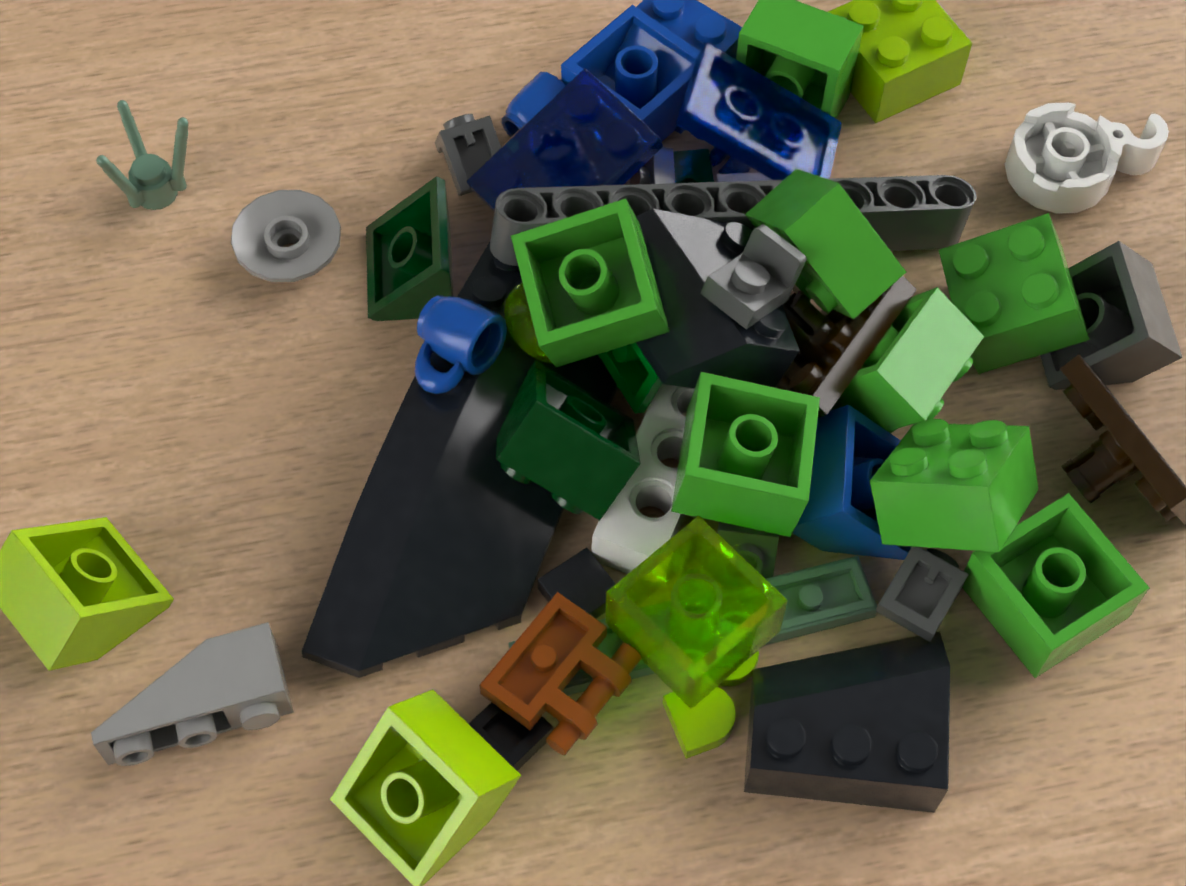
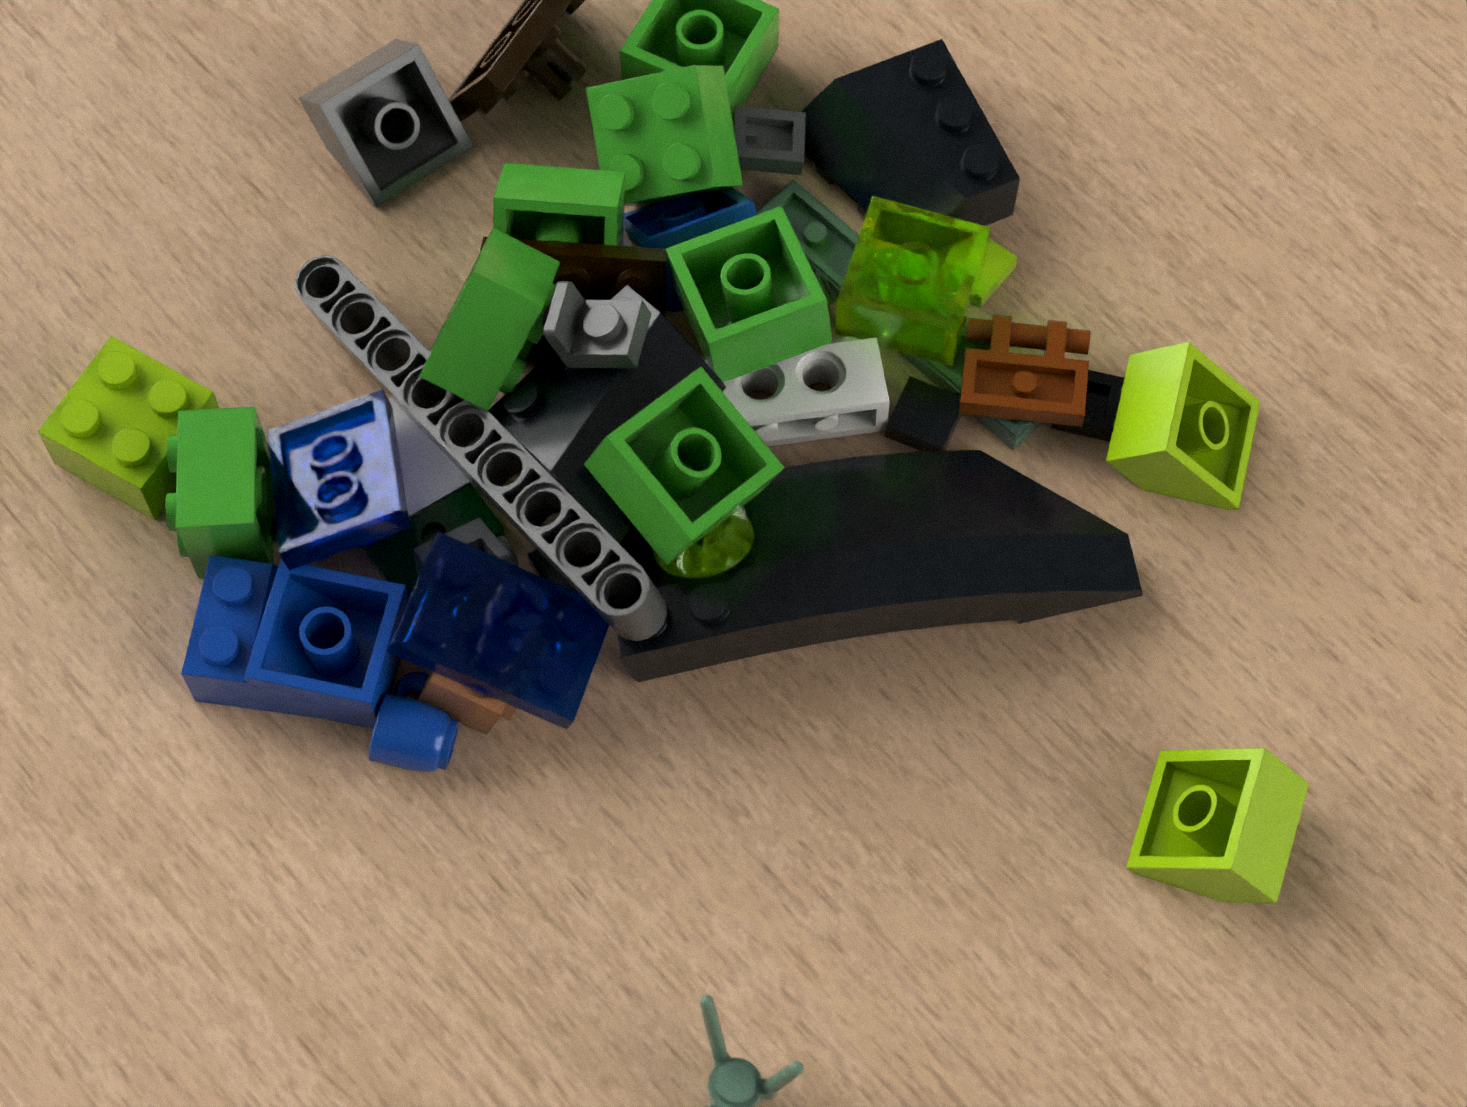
camera: 120 degrees left, 5 degrees up
(212, 690) = (1228, 646): light grey slope -> none
(281, 220) = (729, 860): light grey dish -> none
(409, 255) = (674, 749): dark green slope -> none
(461, 335) = (791, 572): blue piece -> none
(467, 147) = (505, 774): dark grey bracket -> none
(567, 443) = (830, 453): dark green slope -> none
(1015, 292) = (412, 184): bright green brick -> none
(1069, 160) = (183, 194): white piece -> none

